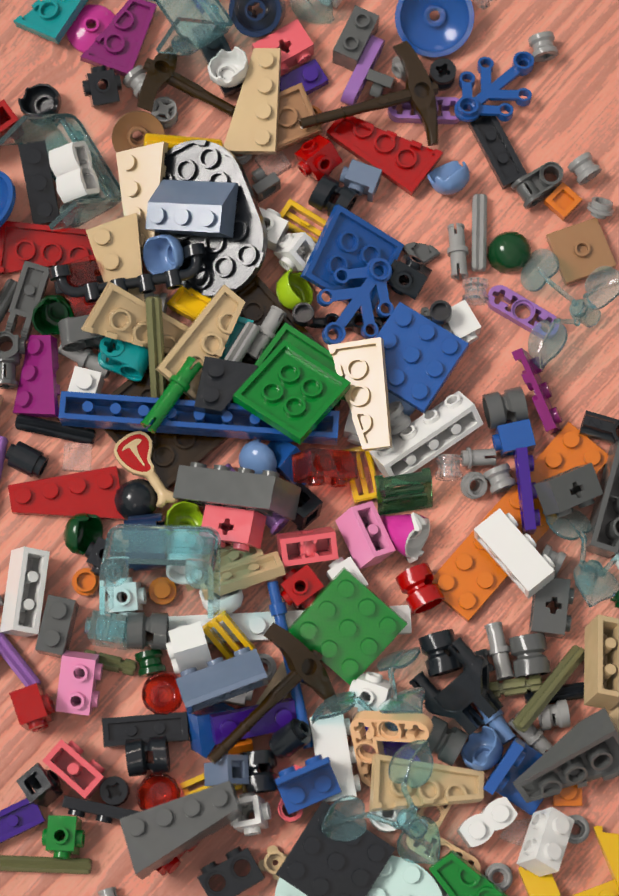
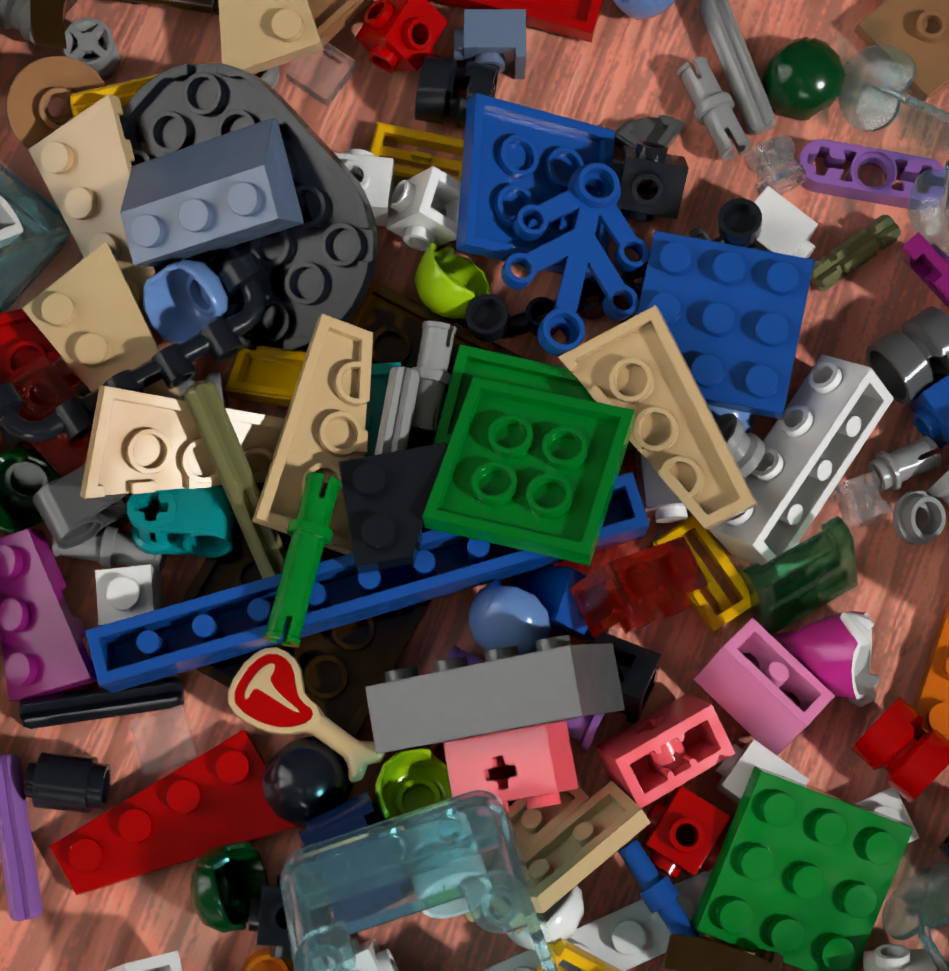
camera: 20 degrees left, 0 degrees up
(162, 591) = (421, 940): orange plate -> none
(264, 185) = (325, 111): dark grey tile -> none
(497, 347) = (854, 252): none -> olive axle

